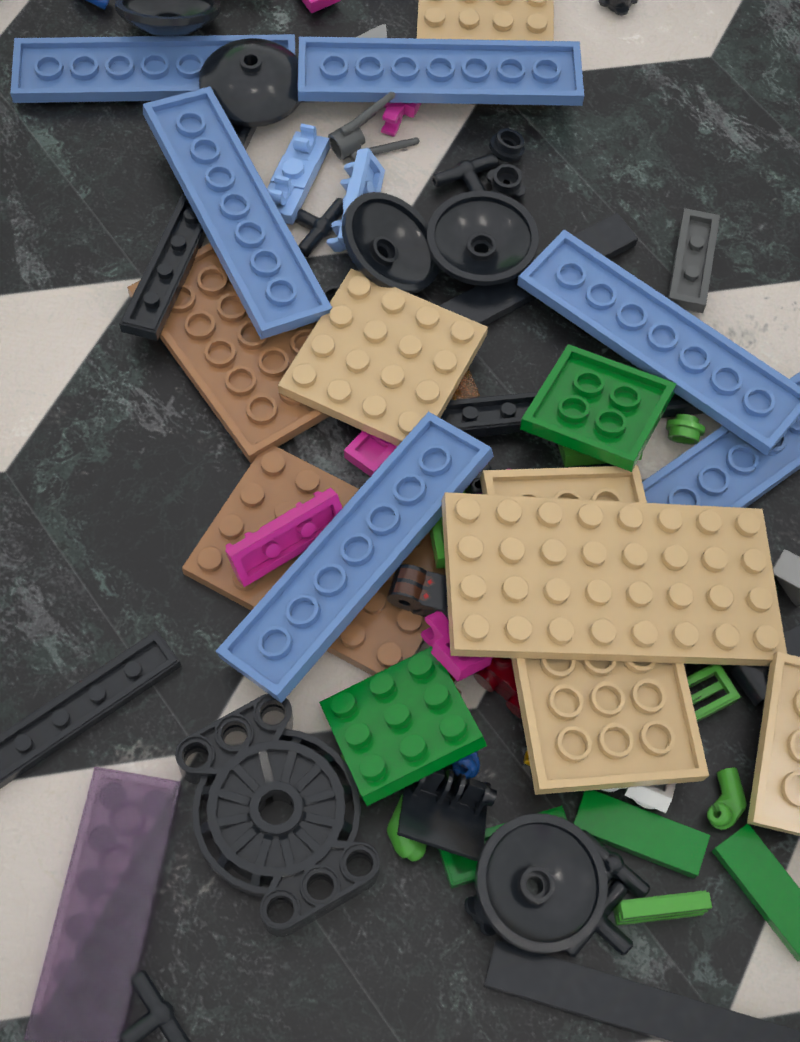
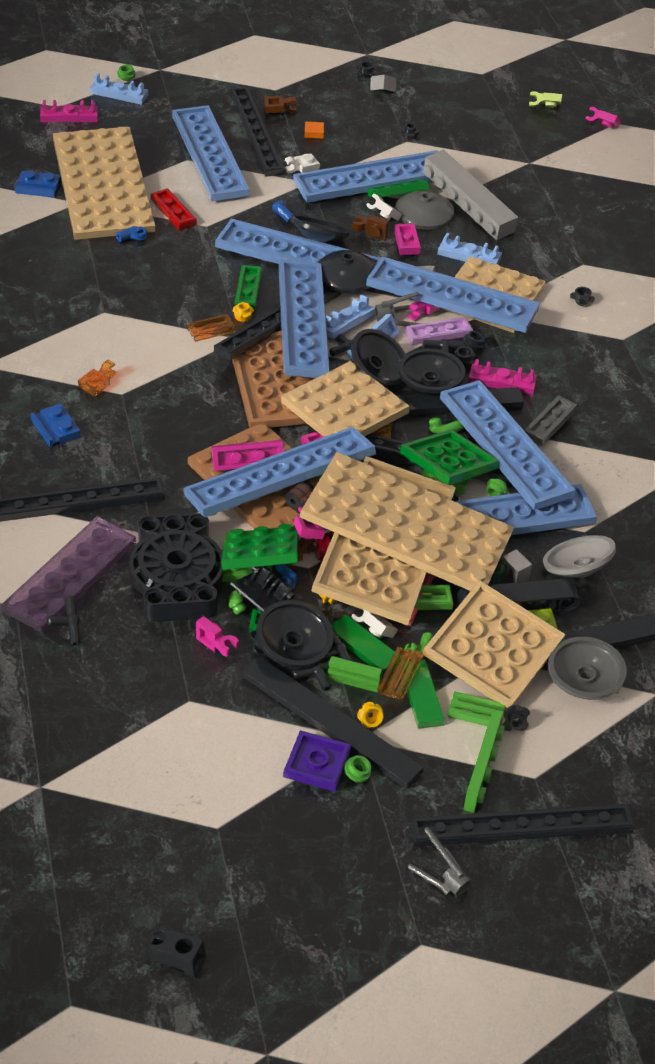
camera: 25 degrees right, 20 degrees down
(90, 278) = (211, 327): none -> clear orange tile
(107, 168) = (249, 285): none -> green tile
(123, 229) = (243, 312): none -> yellow plate
(401, 933) = (211, 635): none -> dark pink plate
(442, 144) = (438, 330): none -> lavender tile
(548, 339) = (437, 427): none -> bright green arm
(582, 202) = (502, 377): none -> dark pink plate
(725, 980) = (375, 719): none -> yellow plate
(729, 913) = (396, 671): none -> clear orange tile

